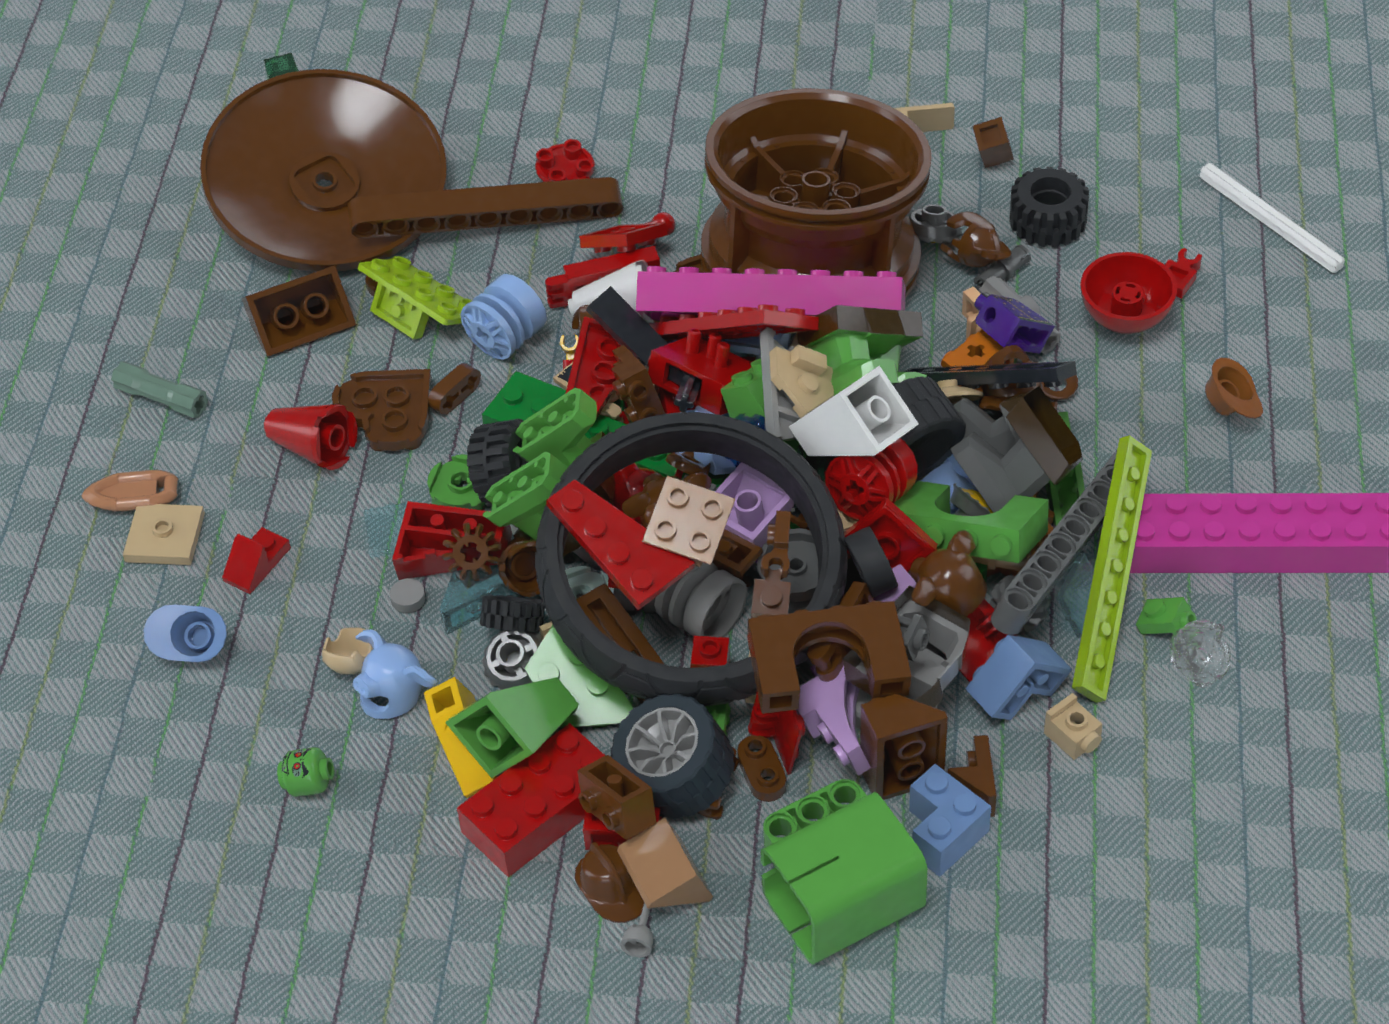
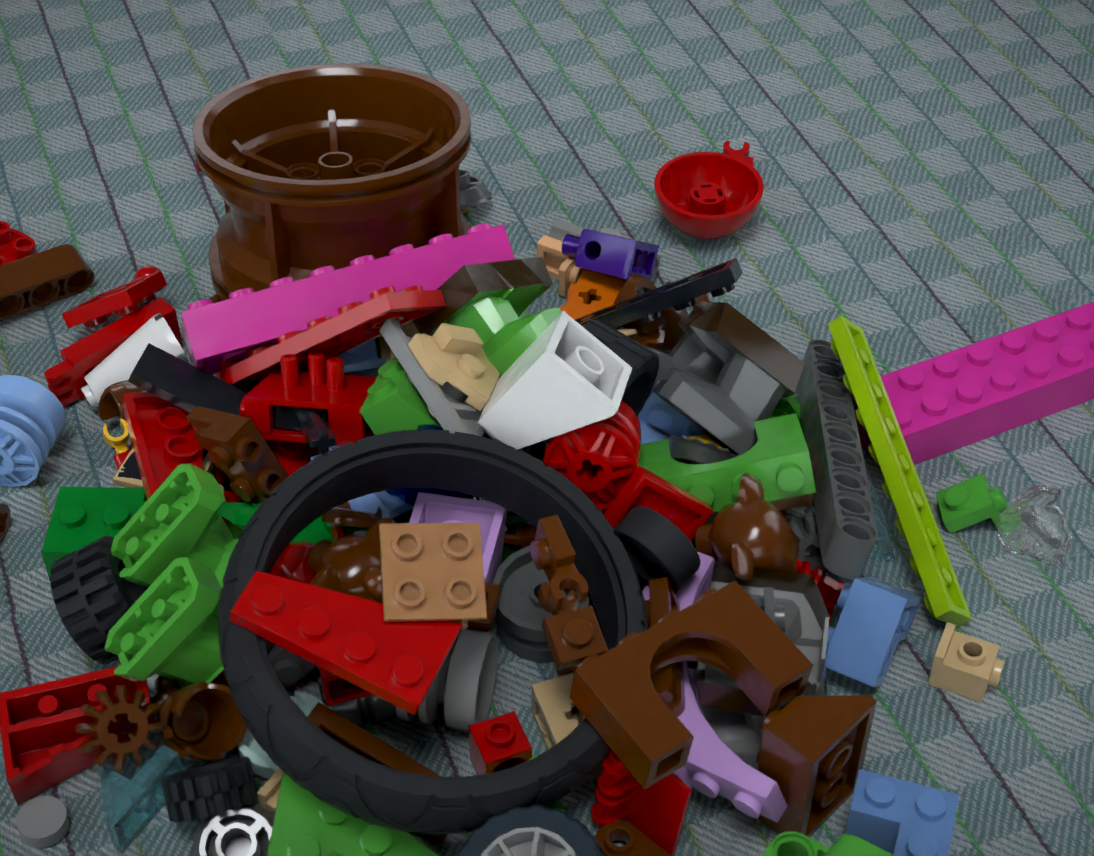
camera: 30 degrees left, 5 degrees down
(442, 486) = (22, 649): bright green plate -> none
(978, 774) = (903, 755): reddish brown slope -> none
(979, 243) = (522, 195): reddish brown helmet -> none
(993, 142) = (477, 94): reddish brown brick -> none
(1006, 267) = (556, 209): dark grey pin -> none
(1049, 206) = (567, 141): black tyre -> none
(1232, 390) = (868, 257): dark orange piece -> none
(1272, 218) = (785, 94): white axle -> none

